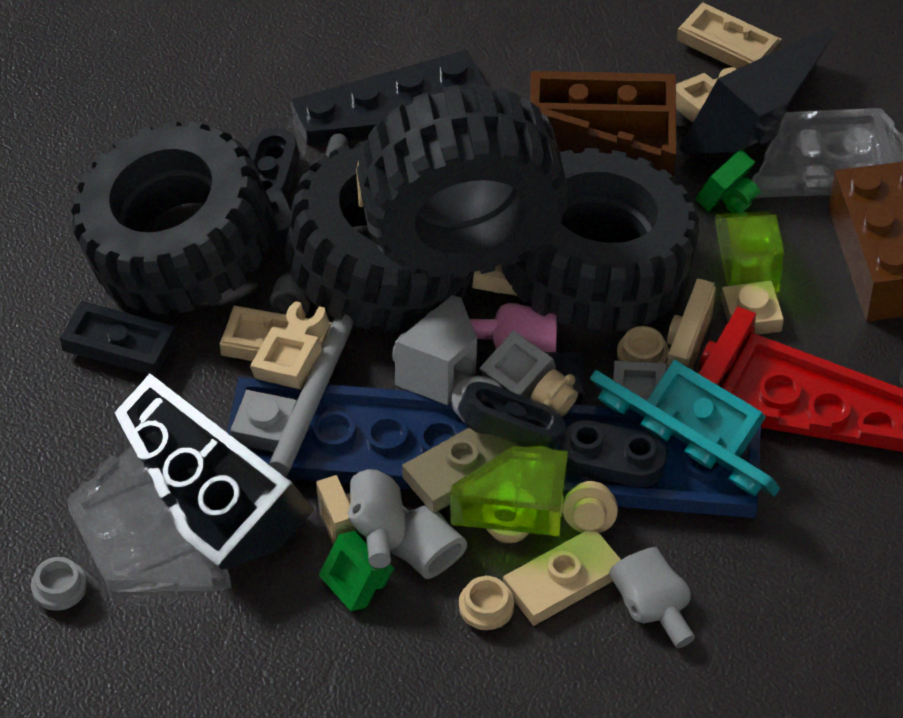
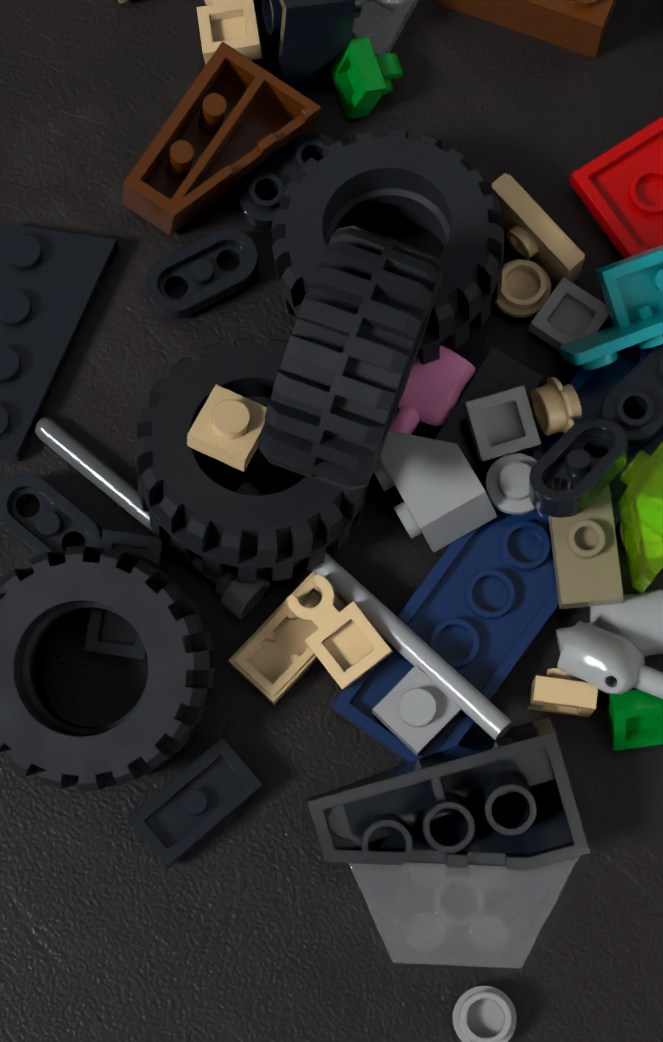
camera: 60 degrees left, 25 degrees up
(722, 355) = (584, 217): red plate -> none
(750, 247) = (453, 105): clear neon green slope -> none
(758, 298) = (525, 152): tan plate -> none

